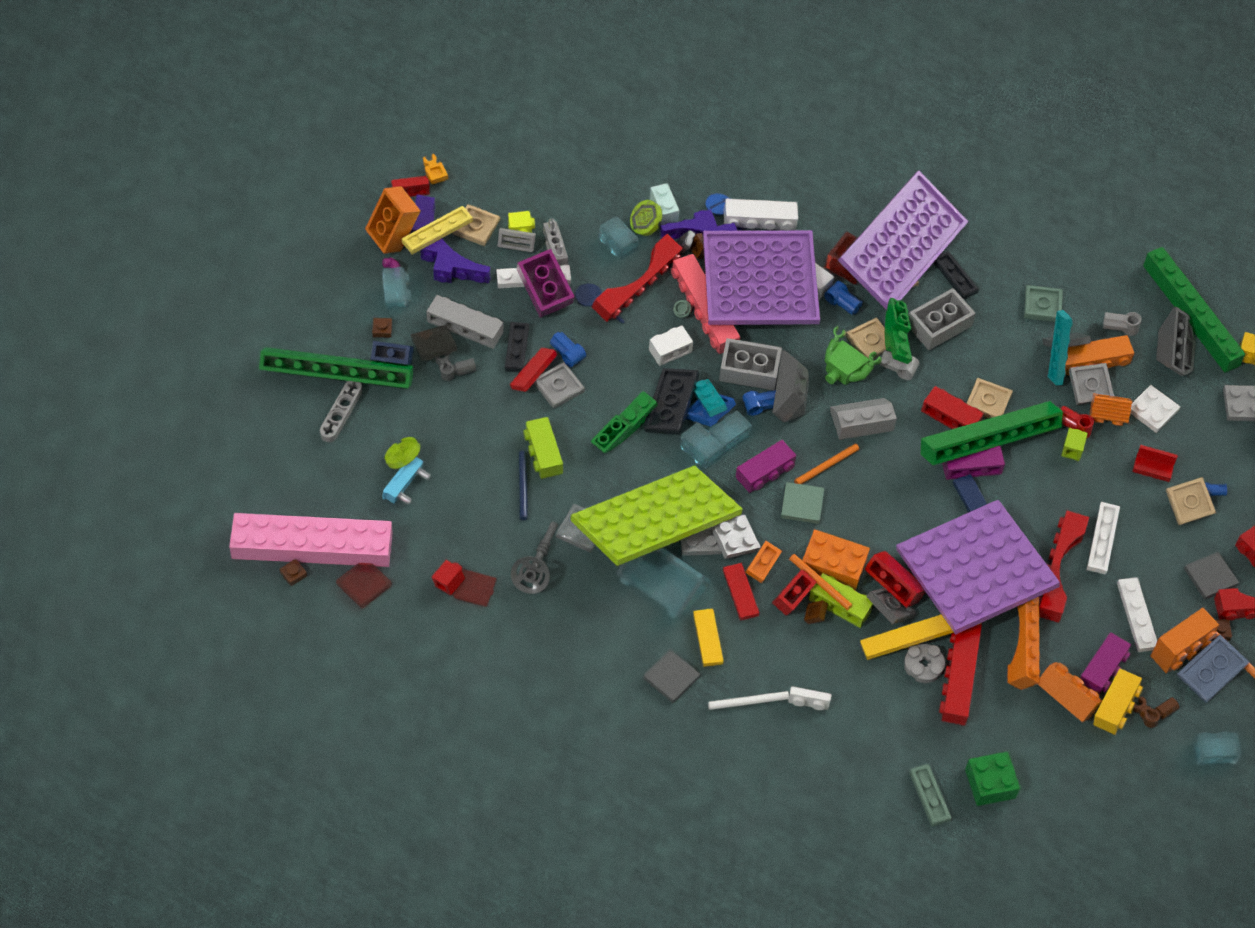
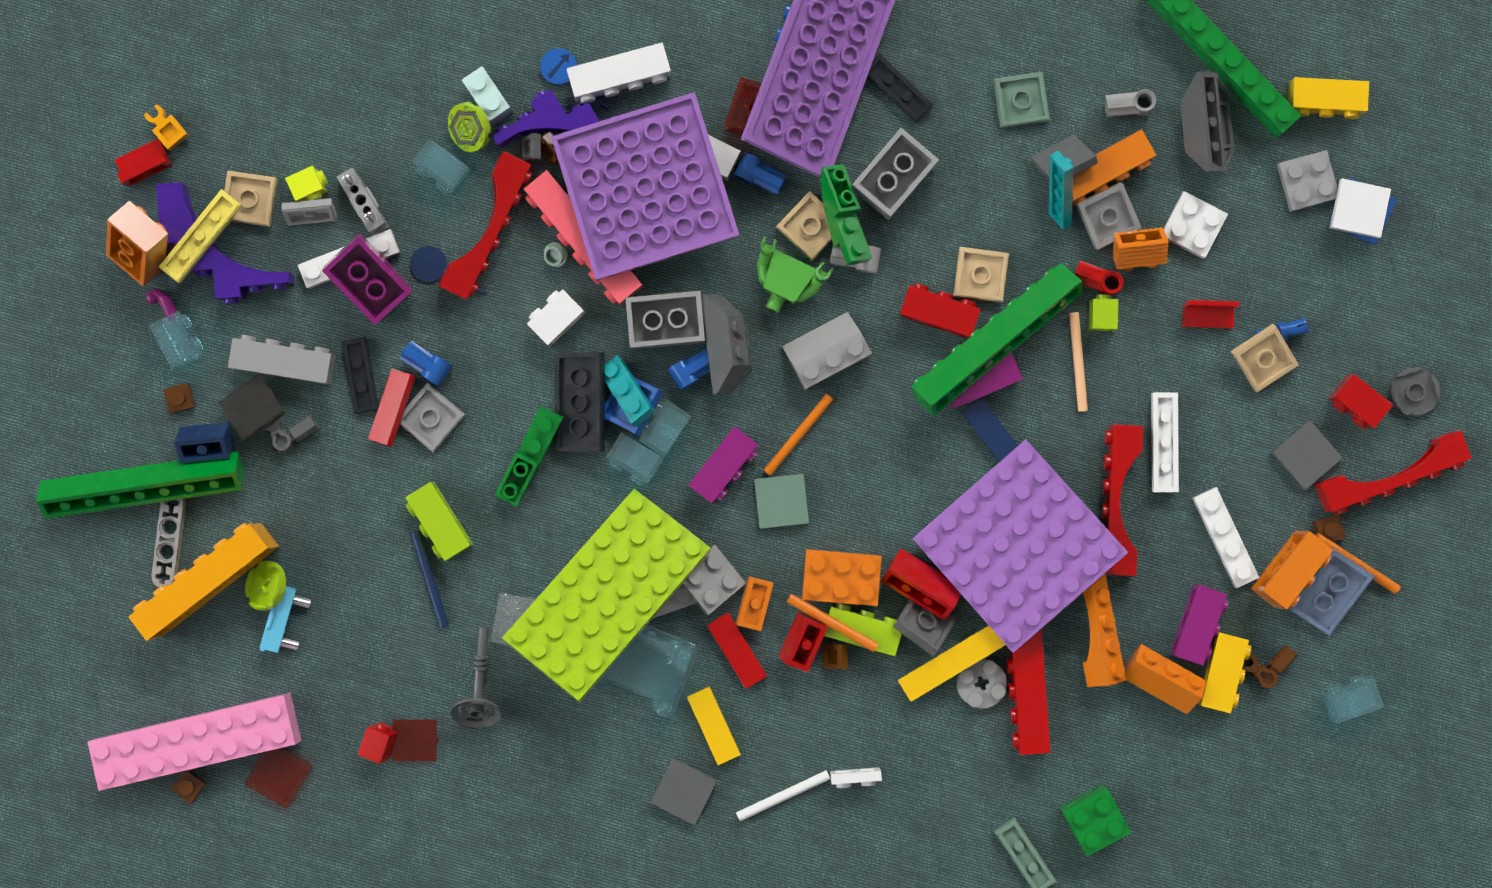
camera: 10 degrees left, 30 degrees up
(359, 435) = (203, 581): none -> light orange brick
(1048, 472) = (1078, 361): none -> light nougat bar

